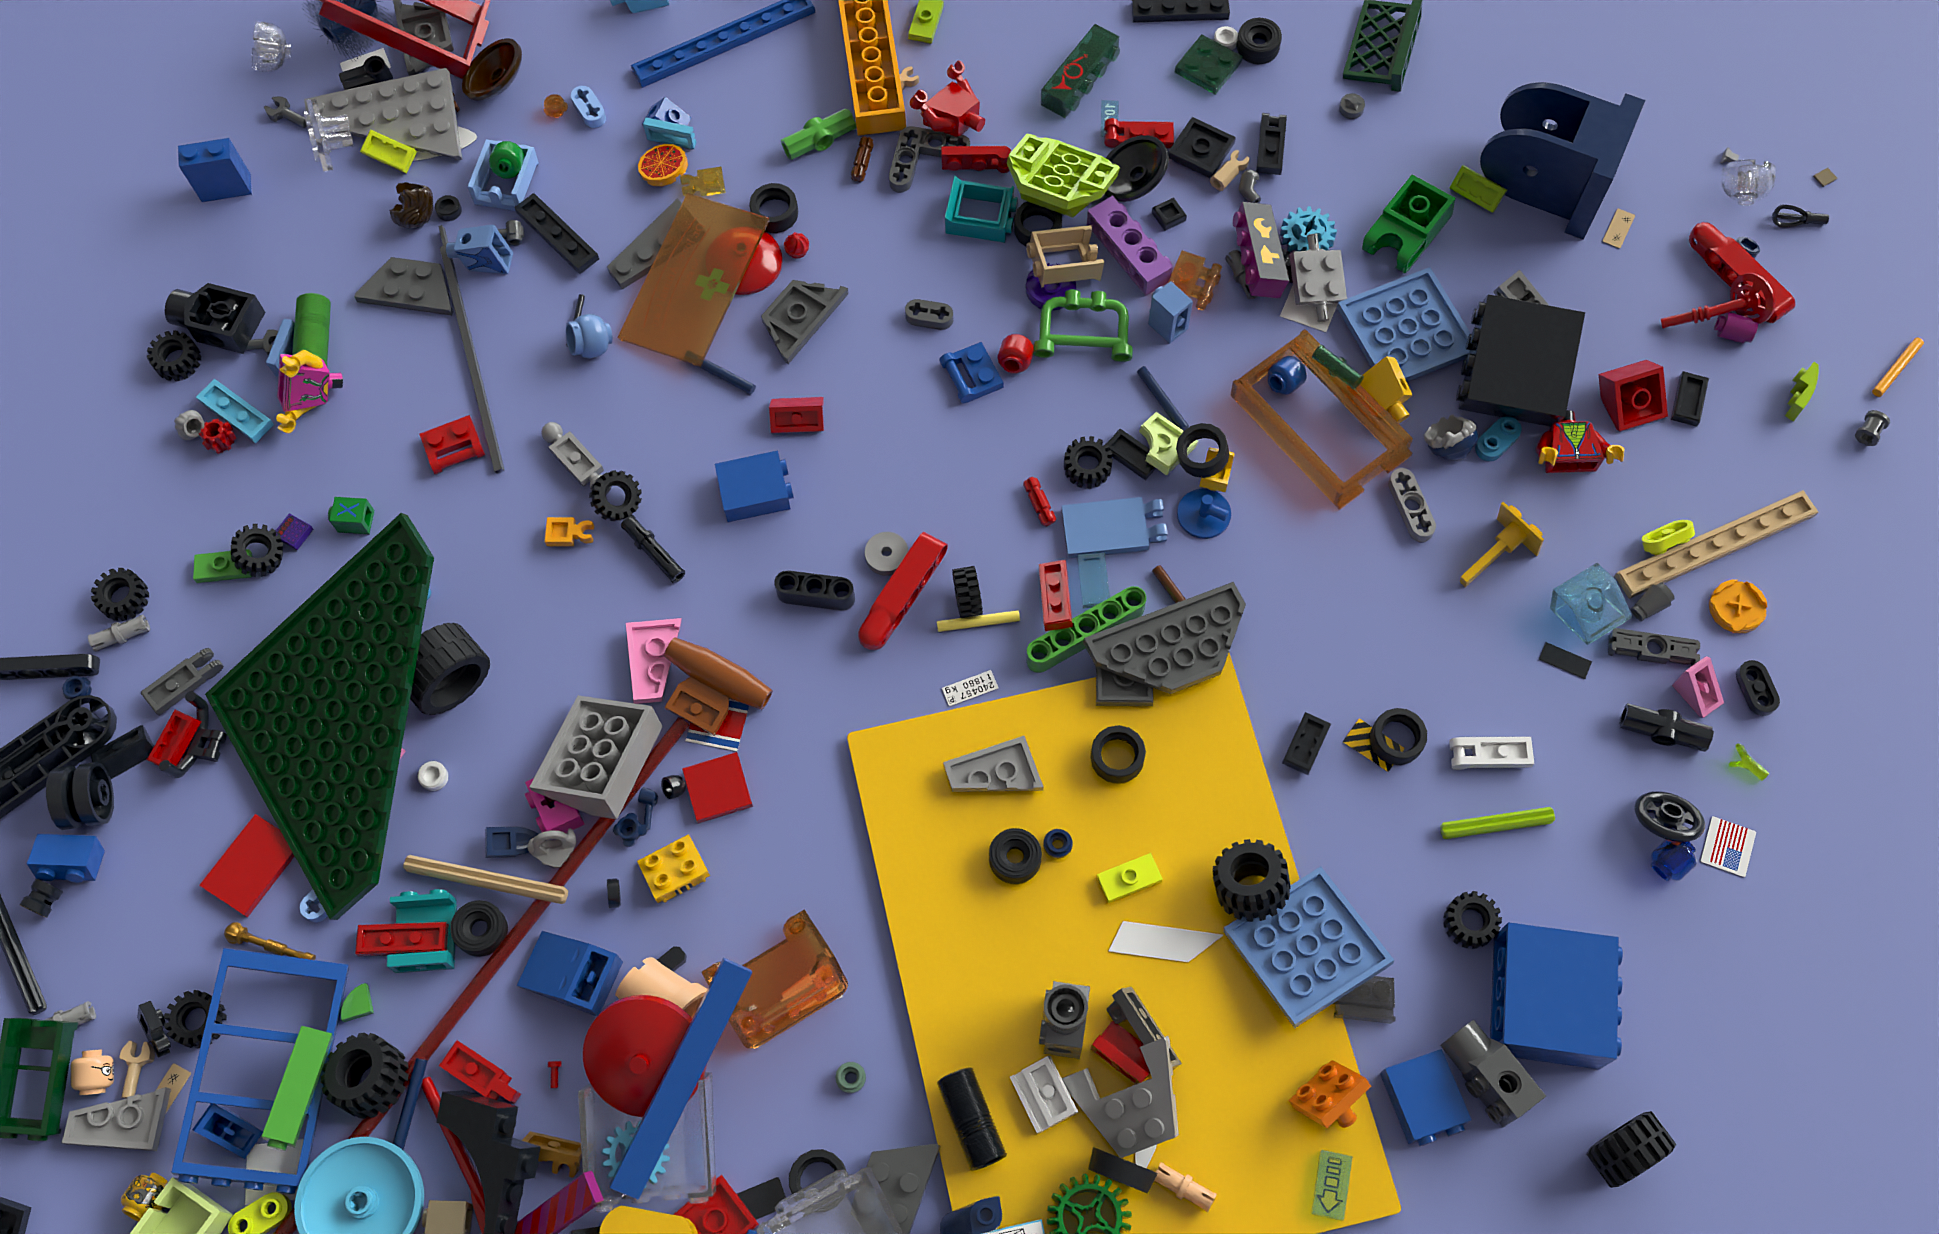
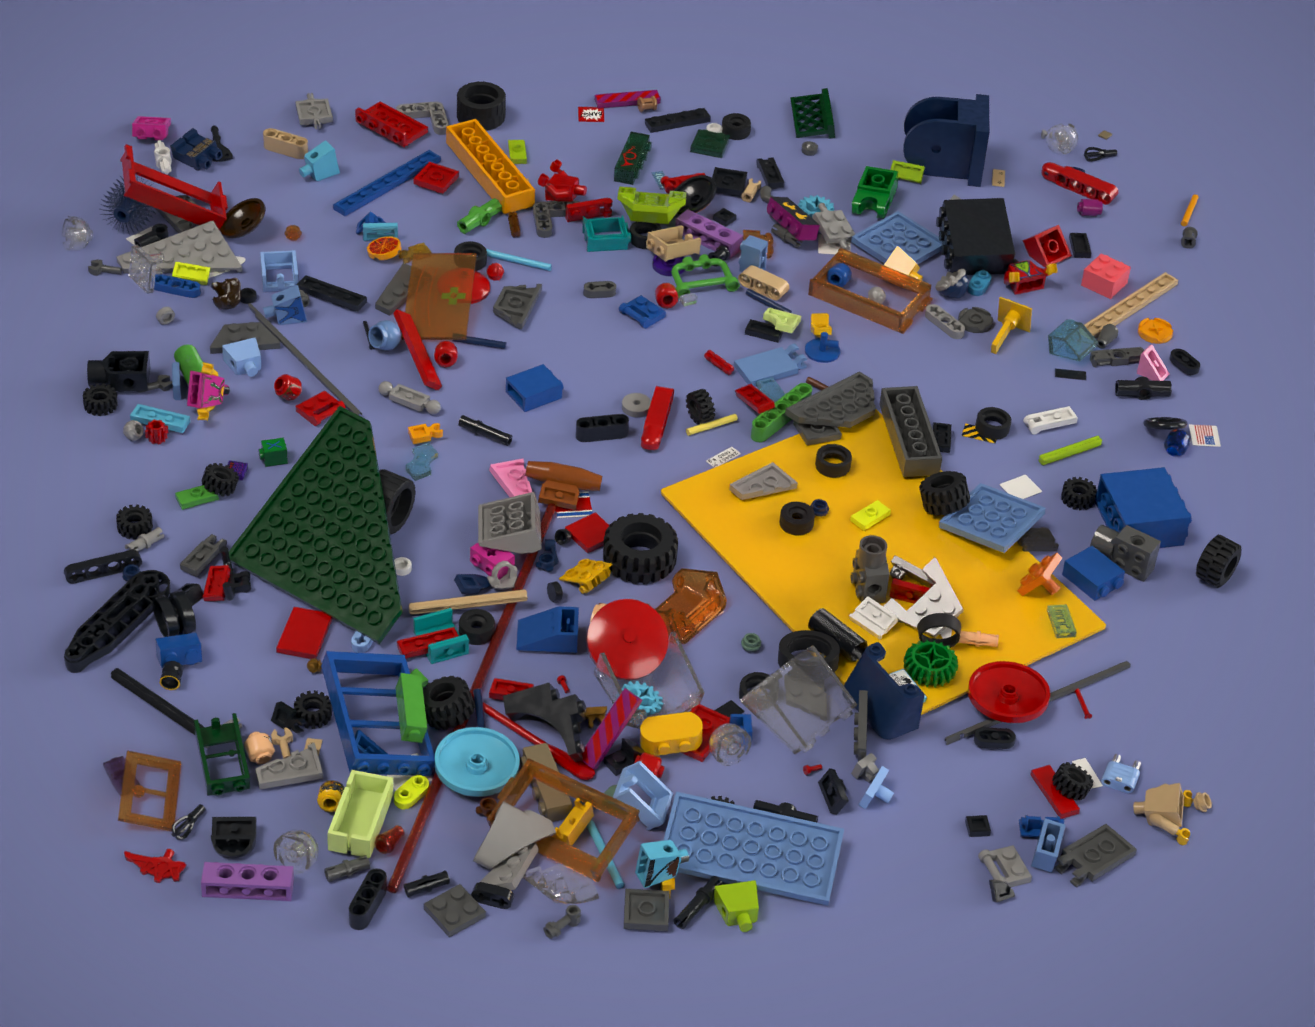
camera: 25 degrees left, 25 degrees down
(214, 169) = (80, 297): blue brick -> none
(321, 222) = (165, 315): none -> light grey tile
(367, 176) = (186, 287): none -> blue beam
(389, 325) = (243, 357): none -> light blue torso
(418, 400) = (287, 387): none -> red head
(506, 159) = (278, 254): green head -> none
(537, 591) = (419, 466): none -> clear light blue tile
(592, 105) = (315, 229): light blue beam -> none
(608, 510) = (443, 412): black tyre -> none
(622, 373) = (417, 349): none -> red tile
(658, 389) = (445, 354): none -> red head
(680, 1078) = (658, 637): blue tile -> none
(755, 815) = (640, 531): none -> black tyre
(790, 46) = (436, 177): none -> red plate
(796, 414) = (543, 350): red panel -> none
(839, 228) = (520, 260): none -> medium azure bar
(917, 1110) = (803, 640): none -> black tyre
(1048, 364) = (688, 299): none -> clear piece
(1088, 448) = (739, 338): black tyre -> none
(1126, 290) = (720, 253): none -> black bush
(1161, 941) = (909, 540): white sticker -> none
(1169, 361) = (763, 282): none -> tan beam
(1197, 432) = (812, 320): black tyre -> none
(1255, 733) = (910, 431): none -> dark grey brick
(1325, 431) = (877, 295): none -> light grey piece
(1337, 367) = (870, 258): clear green pin -> none
(1389, 875) = (1021, 487): none -> white sticker
(1461, 512) = (976, 320): none -> dark grey tile
(1668, 536) = (1096, 309): neon yellow plate -> none
(1701, 478) = (1105, 276): none -> coral brick
(1740, 305) = (1086, 192): red dish -> none
(1749, 763) = (1196, 395): clear neon green bar -> none
(1803, 390) = (1141, 224): lime slope -> none

